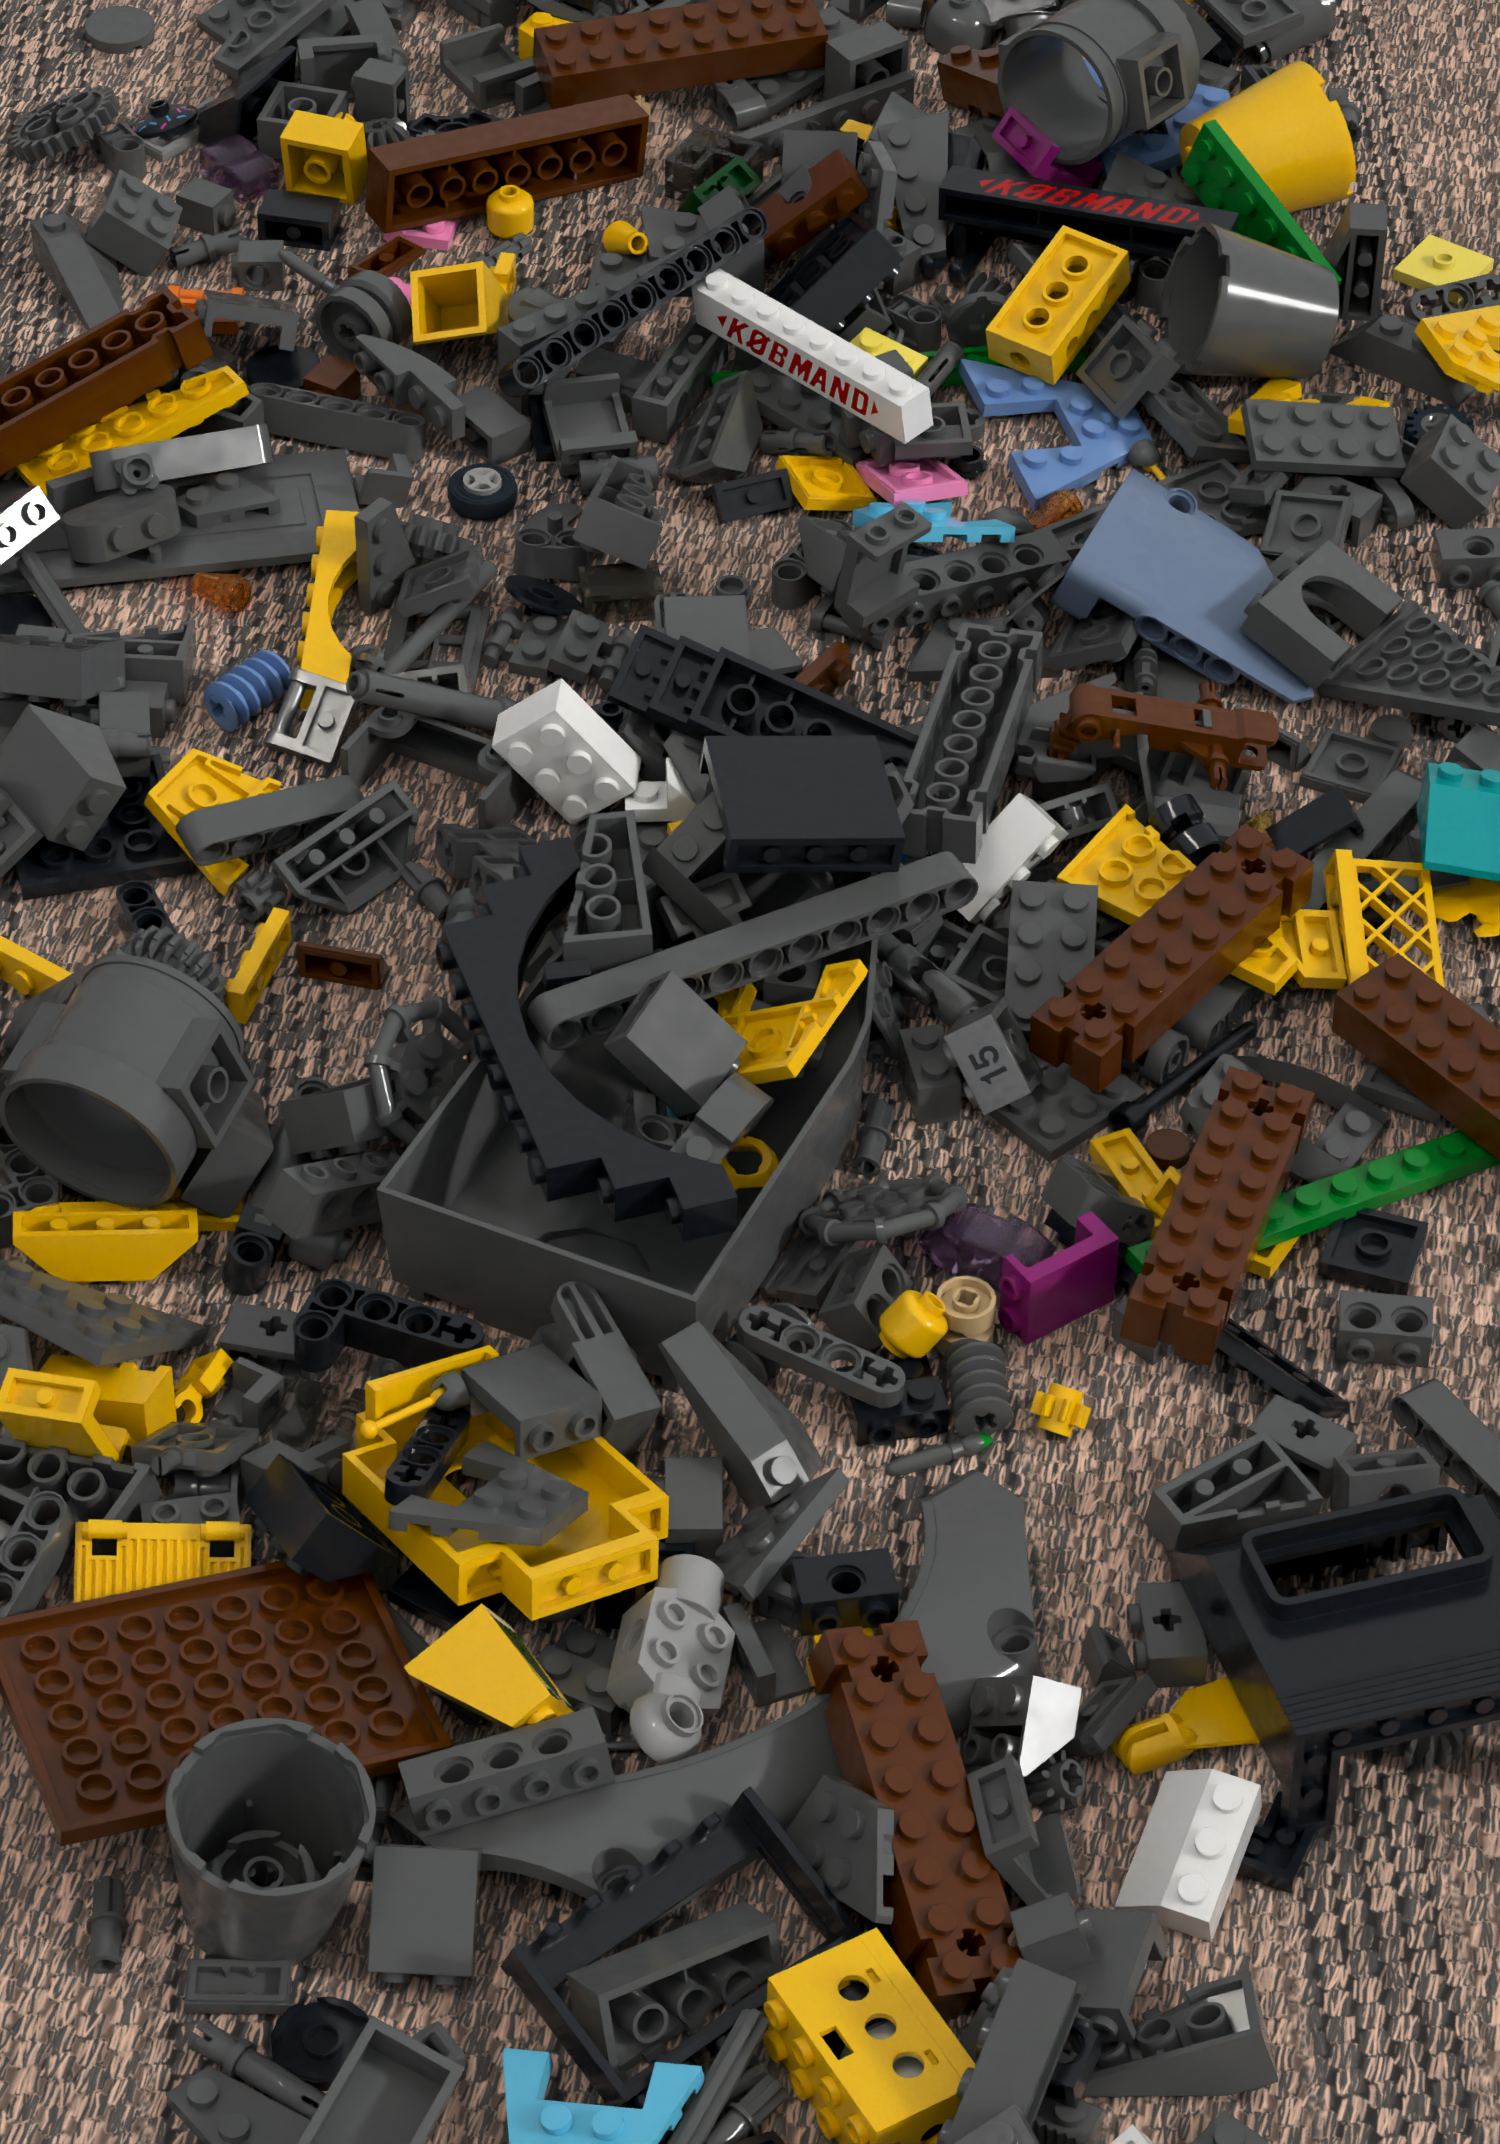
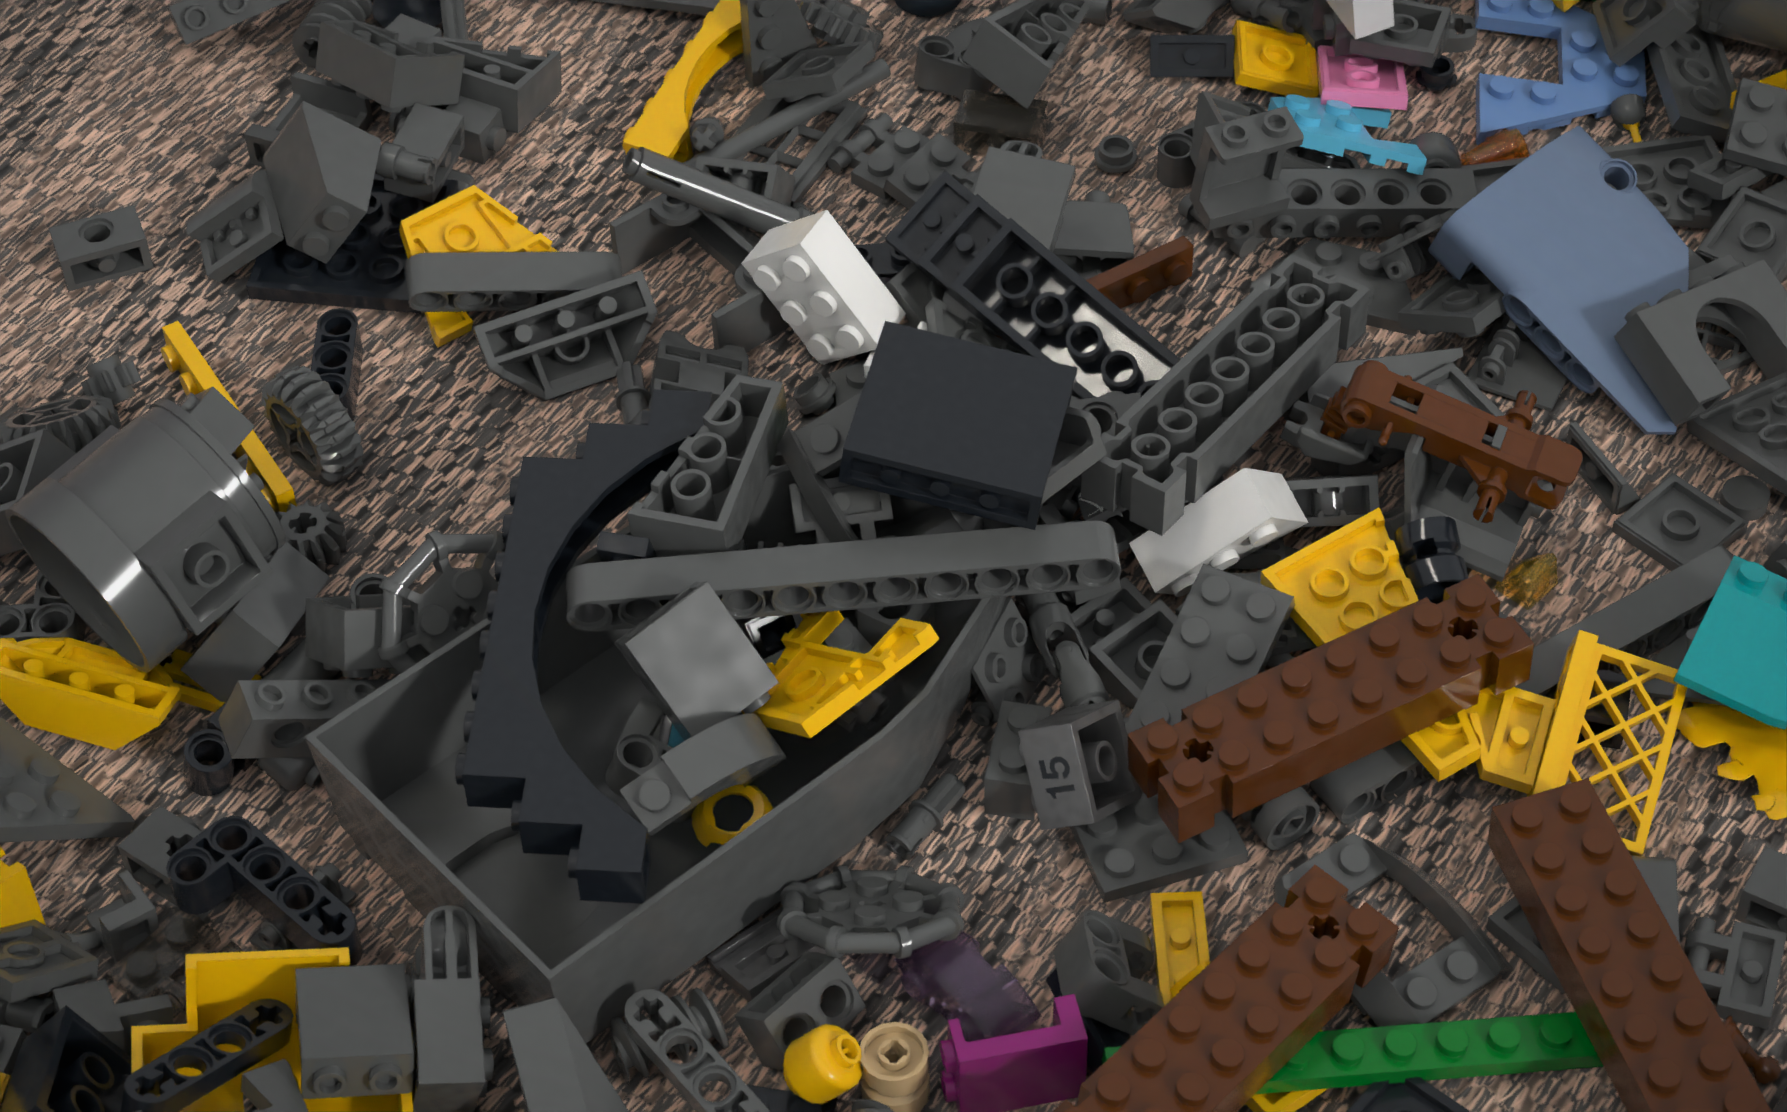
camera: 25 degrees right, 5 degrees up
(201, 1380) = (90, 881): yellow plate -> none
(225, 591) = (623, 28): clear orange cone -> none
(247, 689) = (577, 133): medium blue piece -> none
(258, 964) = (418, 433): yellow plate -> none
(260, 895) = (460, 359): dark grey gear -> none
(323, 723) = (619, 193): flat silver plate -> none
(341, 965) = (488, 451): reddish brown slope -> none
(446, 1394) = (272, 992): hinge -> none
(541, 596) = (918, 108): black dish -> none
(1136, 1113) = (1217, 877): black piece -> none
(1168, 1148) = (1231, 922): reddish brown tile -> none
(1315, 823) = (1588, 589): black hinge -> none

